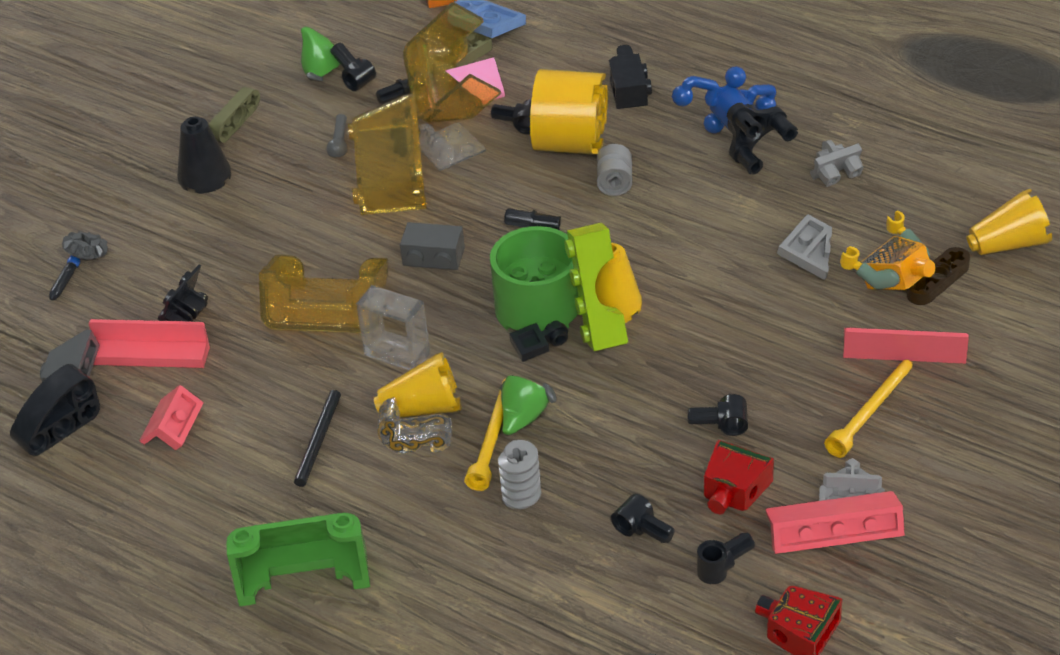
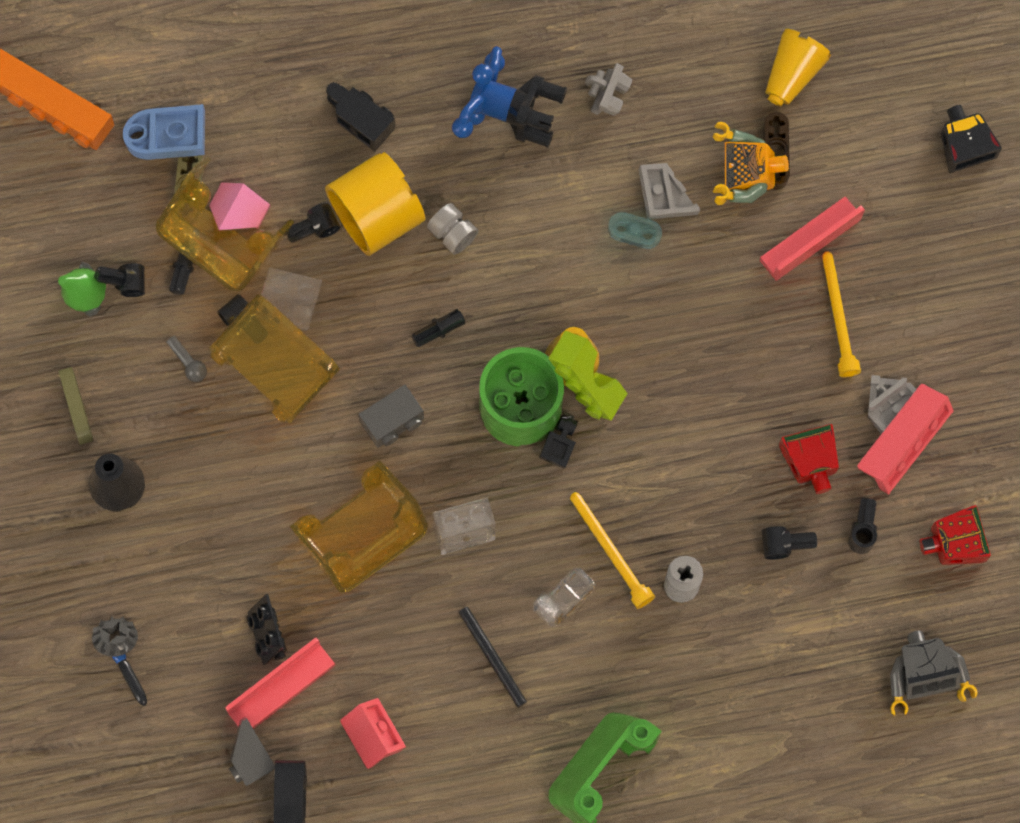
camera: 50 degrees left, 30 degrees up
(423, 389) = (534, 562): yellow cone -> none
(523, 402) = (612, 511): bright green hat -> none
(729, 415) = (756, 404): black axle -> none
(757, 253) = (636, 227): none -> clear light blue plate

